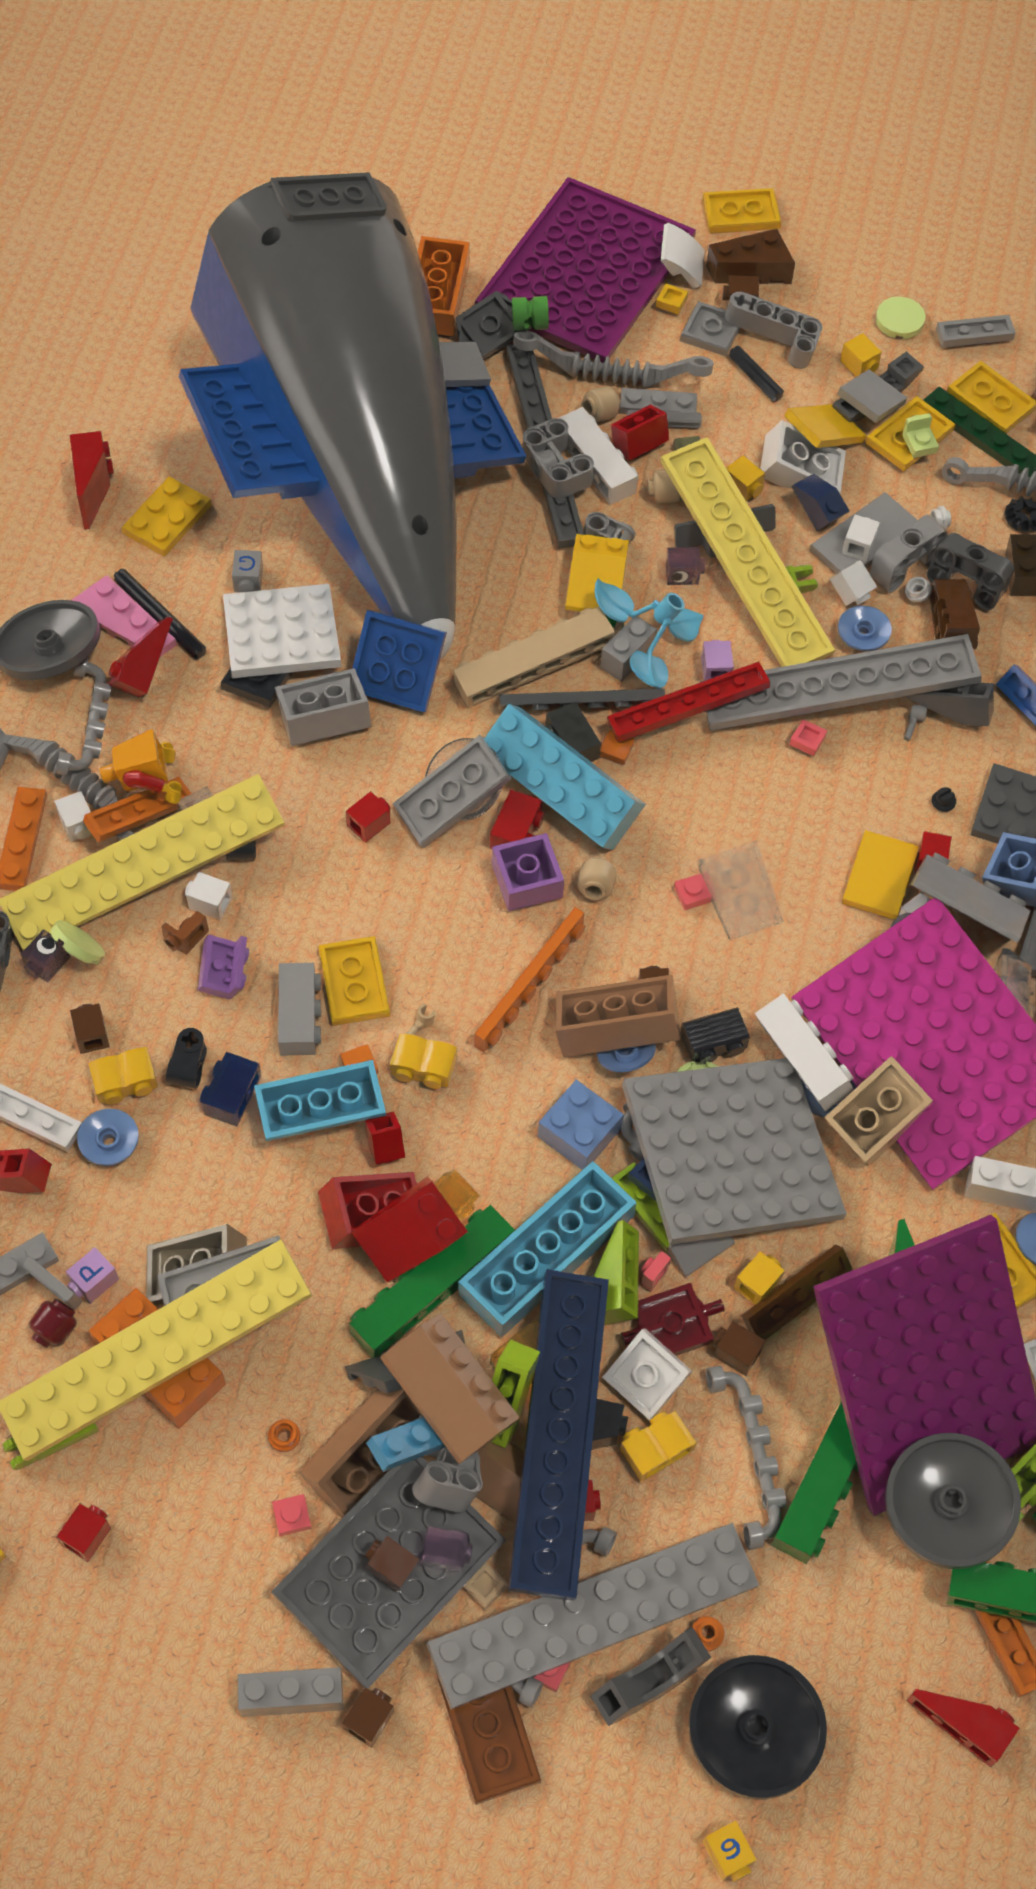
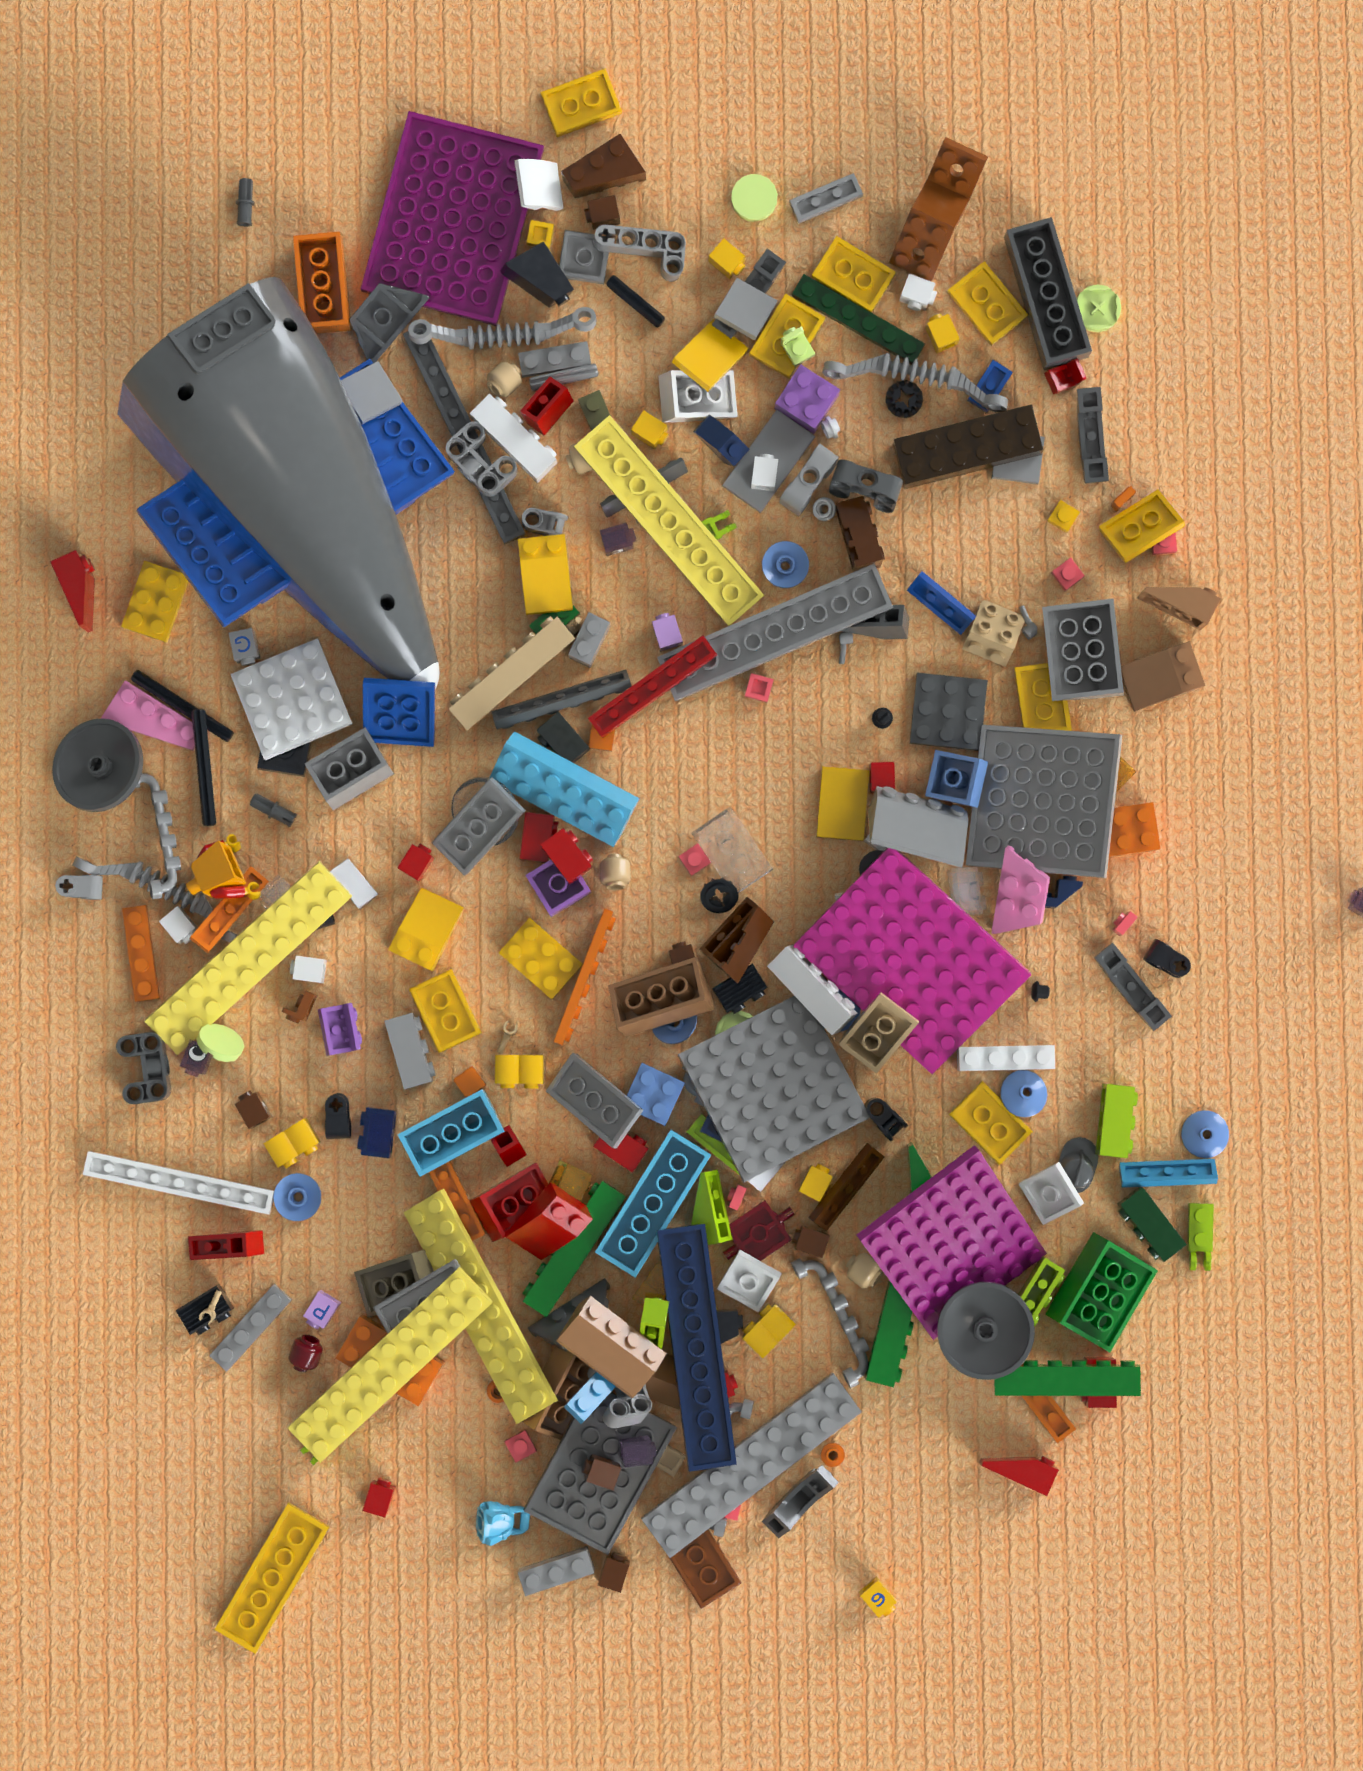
camera: 10 degrees left, 25 degrees up
(52, 1283) = (295, 1327): light grey tile -> none
(137, 666) = (183, 768): red slope -> none
(161, 675) = (203, 767): none -> black axle
(223, 730) = (273, 809): none -> dark grey axle
(231, 1601) = (496, 1522): none -> medium azure piece
(294, 833) = (355, 883): none -> slope
(301, 1190) = (447, 1178): none -> orange plate
(301, 1338) = (495, 1329): none -> light yellow plate
(355, 890) = (426, 929): none -> yellow slope
(483, 951) = (540, 958): none -> yellow plate
(507, 1109) = (594, 1100): none -> light grey plate
(524, 1176) = (627, 1154): none -> red brick
(530, 313) = (417, 306): bright green wheel -> none
(547, 832) = (567, 856): none -> red brick
(661, 324) = (539, 276): none -> black slope
(669, 612) = (625, 599): medium azure plant -> none
(724, 938) = (714, 904): none -> black gear
(725, 976) = (738, 939): none -> reddish brown wedge
(757, 1727) = (880, 1513): black dish -> none
(800, 1401) = (863, 1270): none -> tan head
(853, 583) = (767, 521): white brick -> none
(866, 1228) = (886, 1119): none -> black piece
(921, 485) = (807, 399): none -> medium lavender brick

